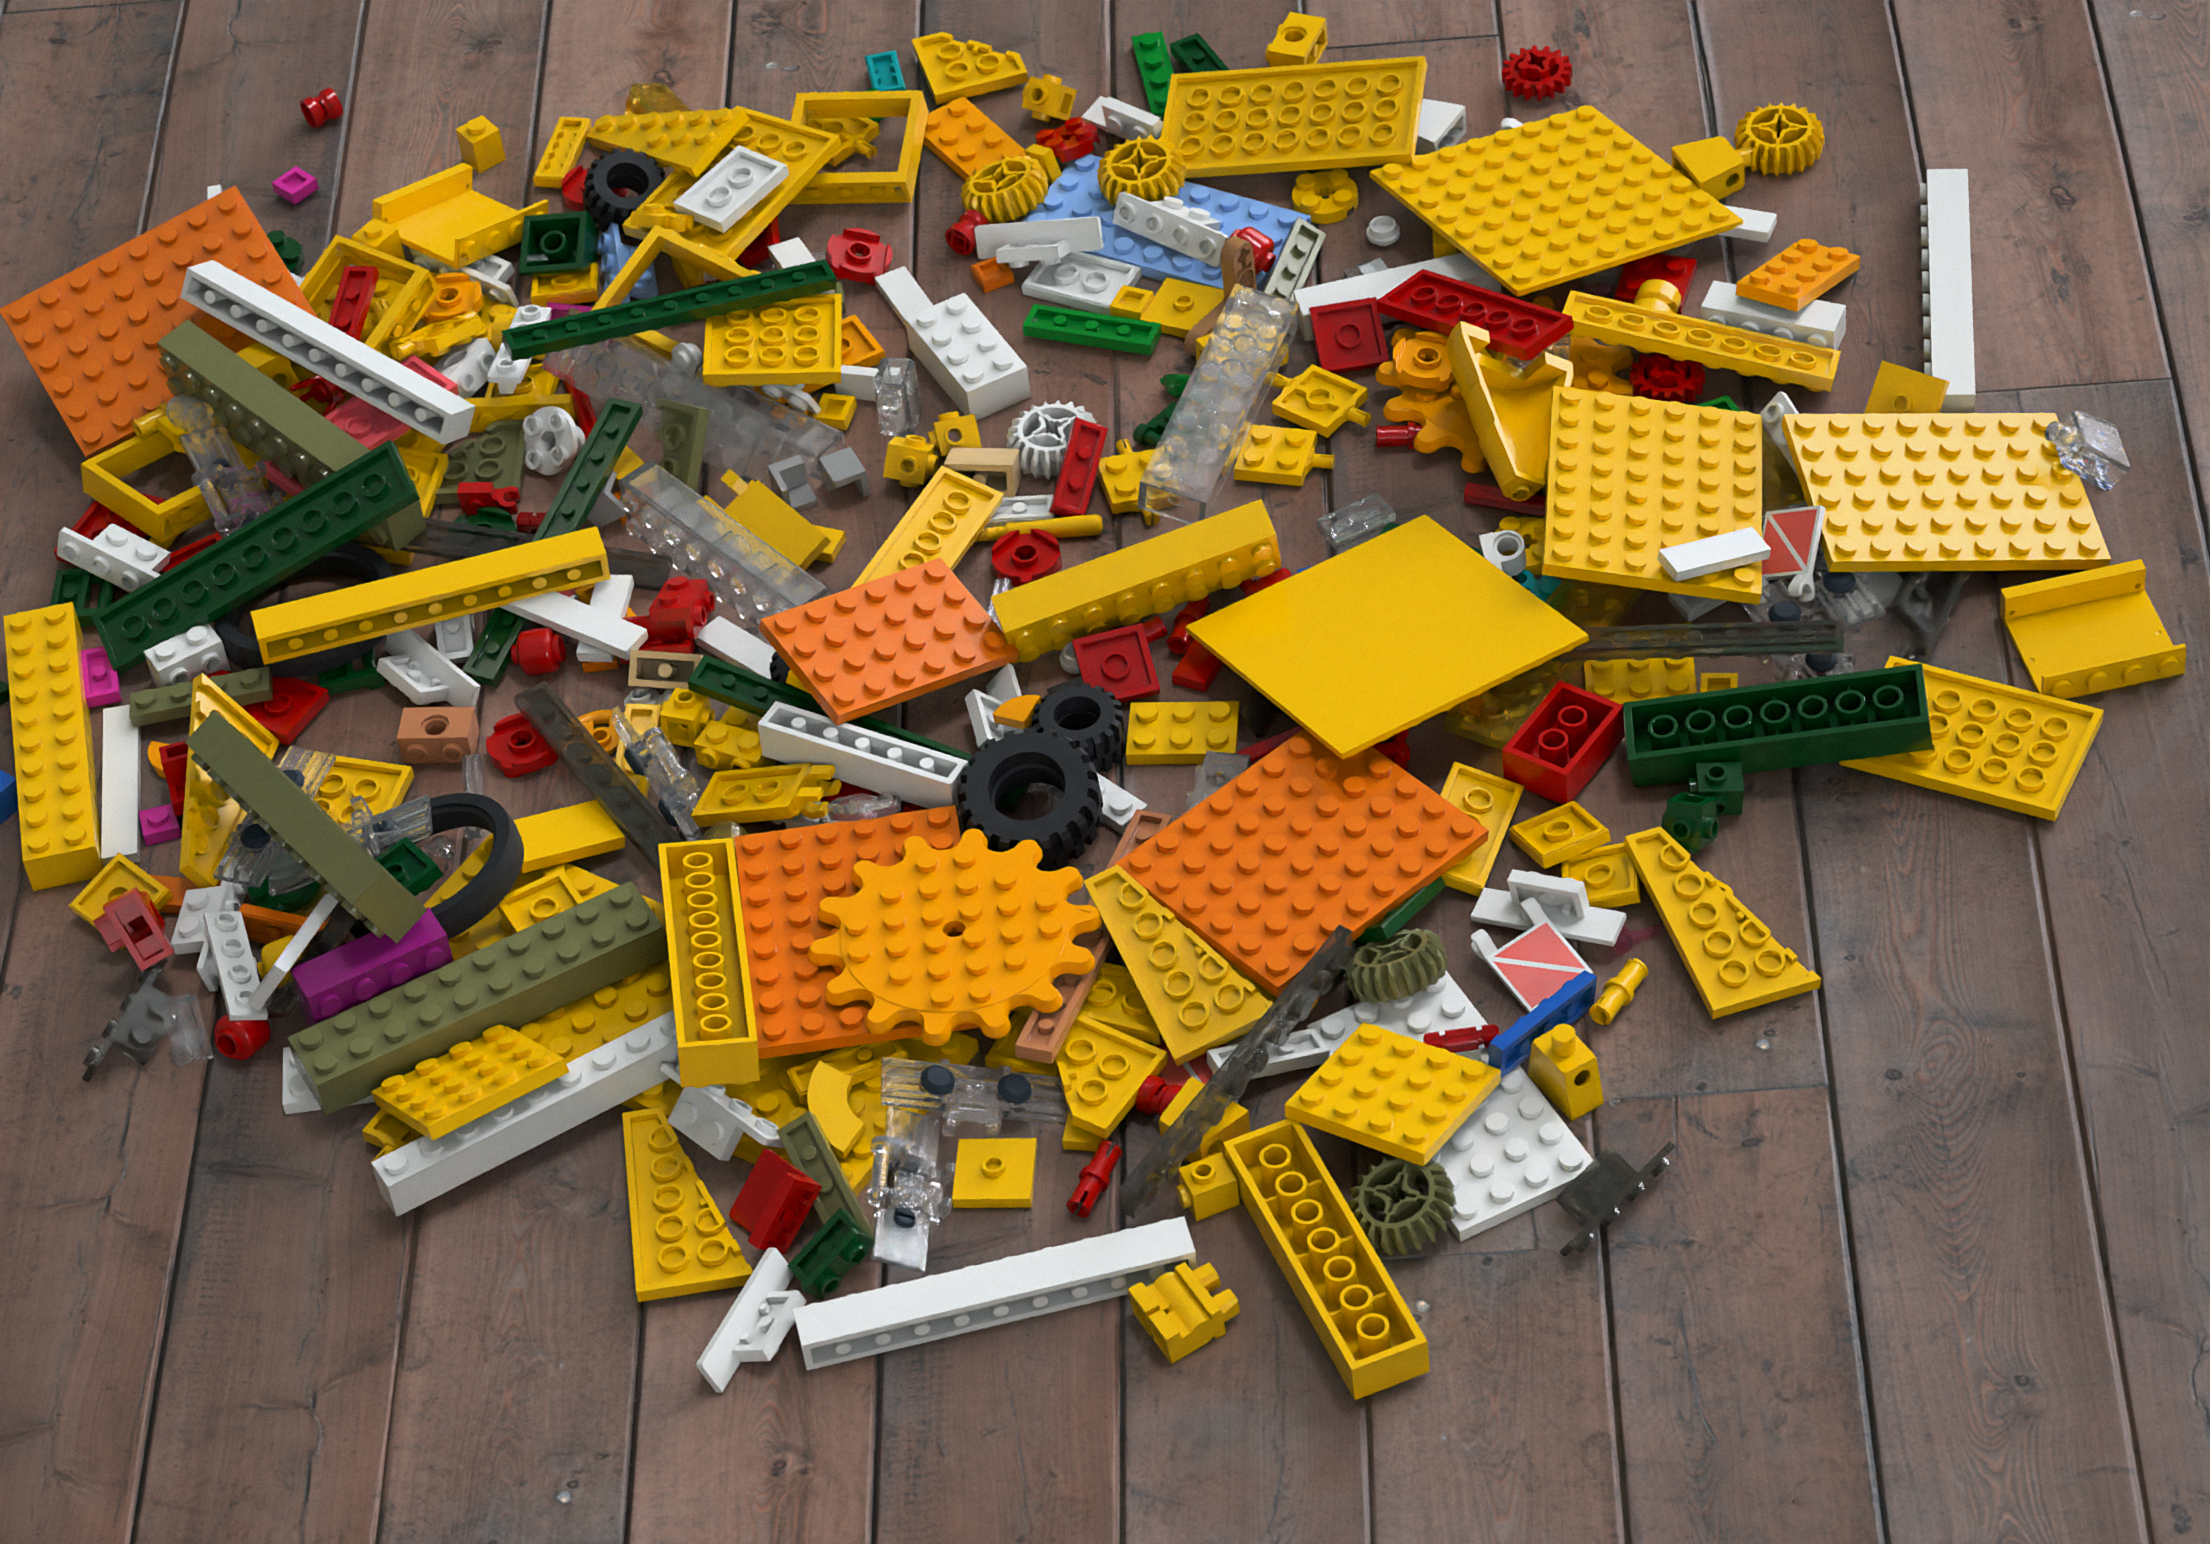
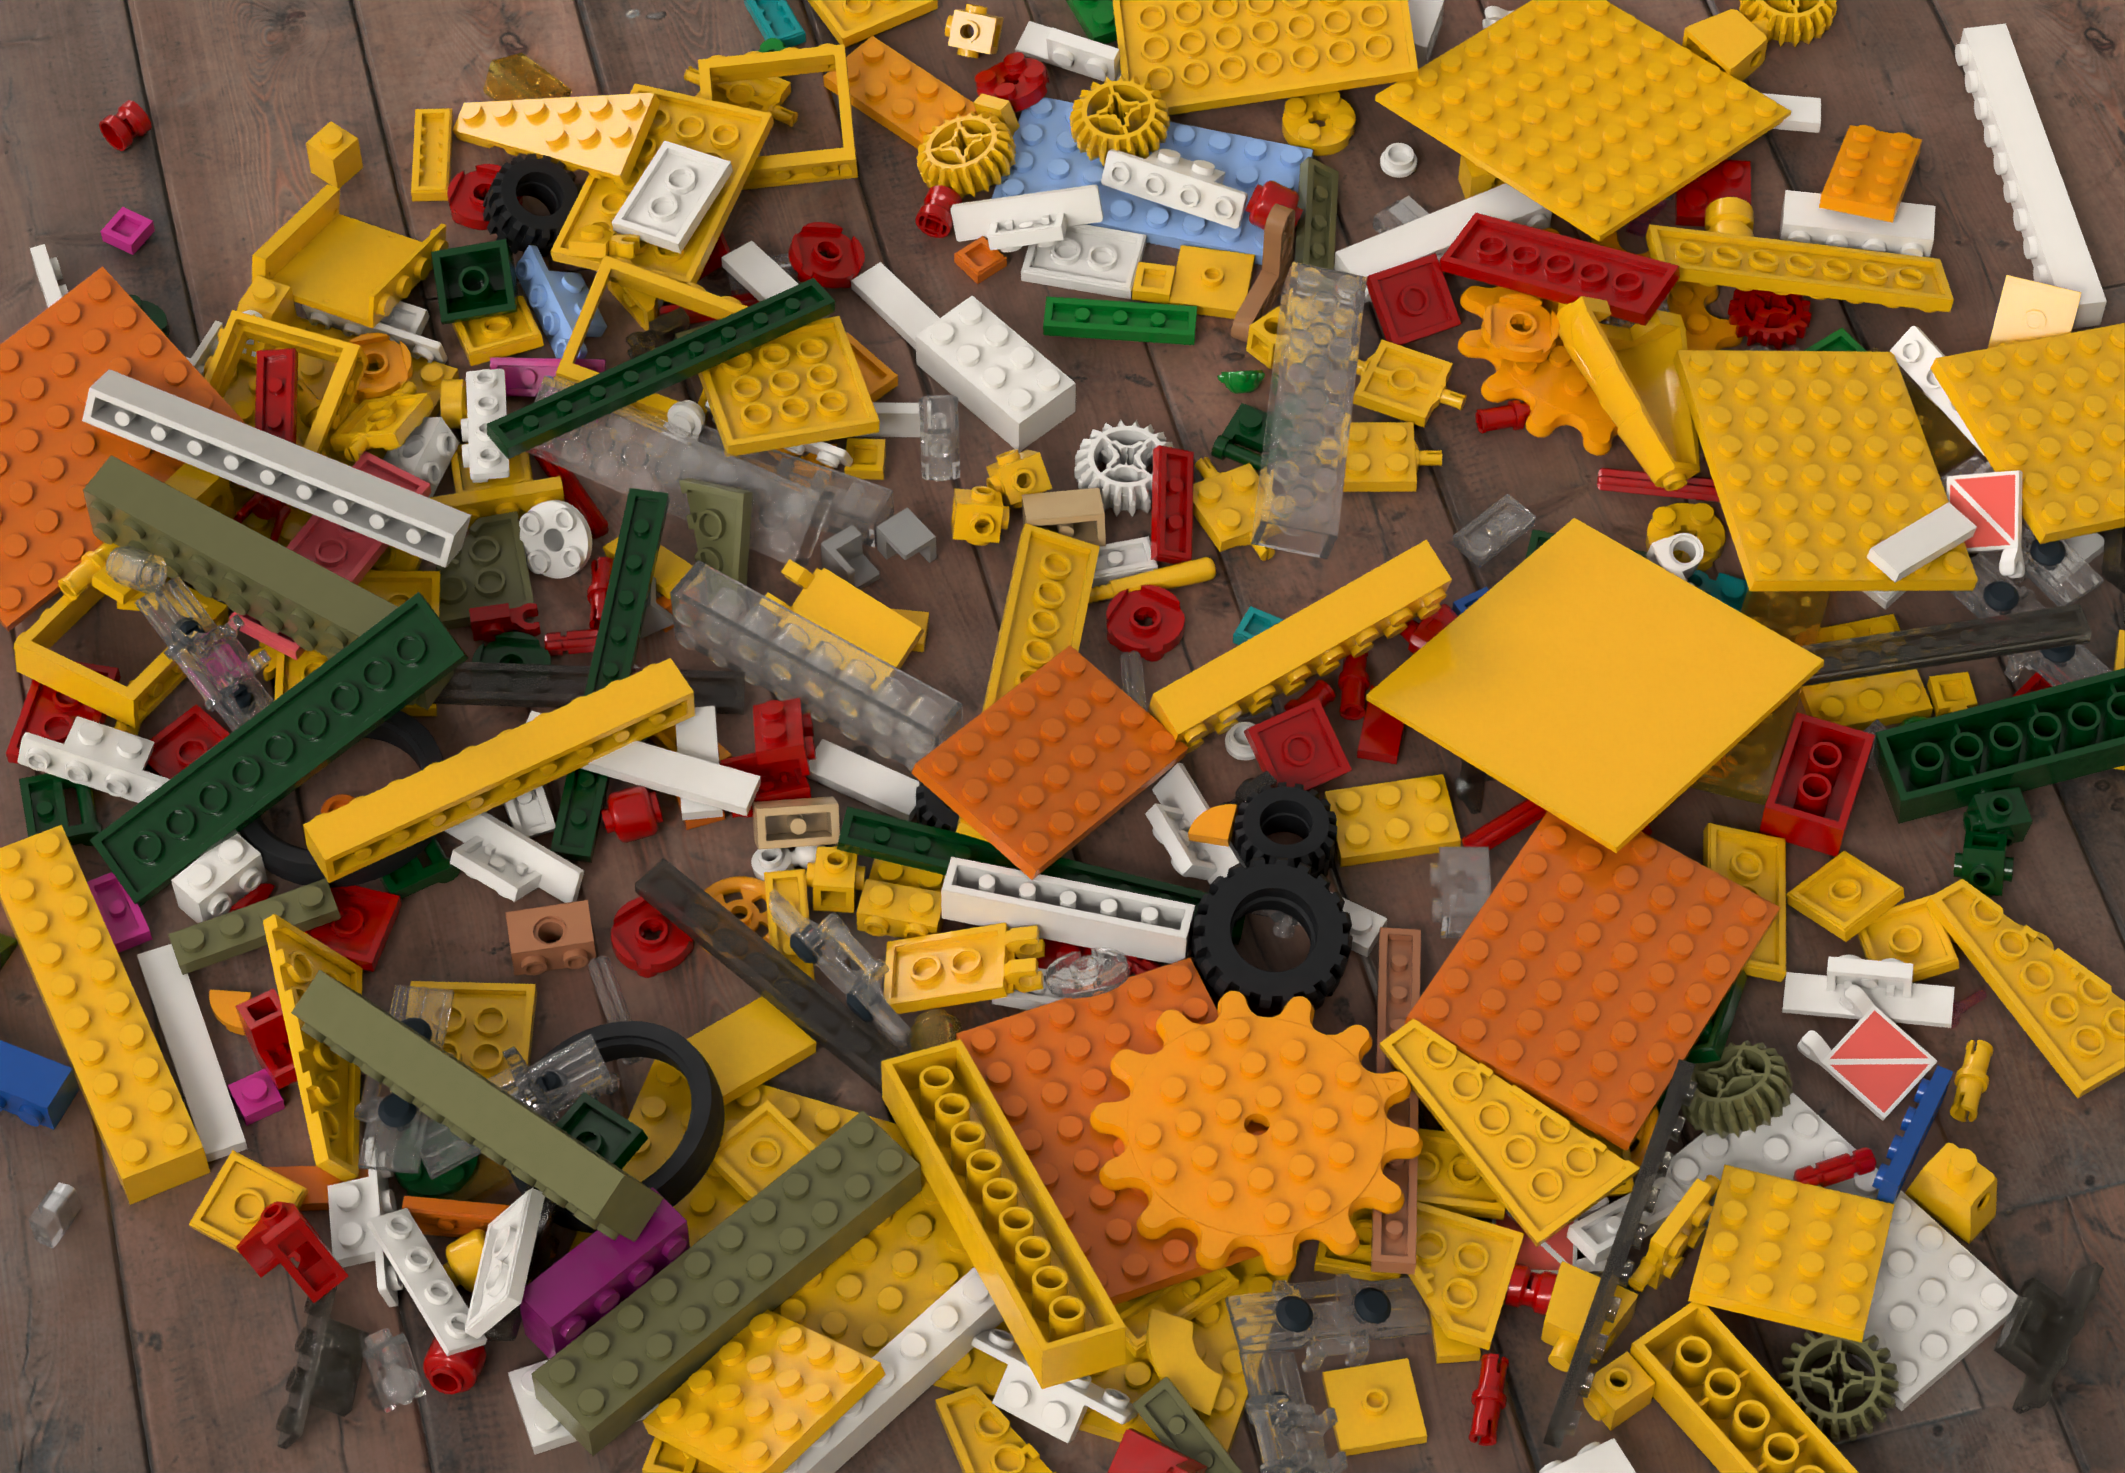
camera: 20 degrees left, 10 degrees up
(1293, 1065) = (1679, 1231): none -> yellow plate

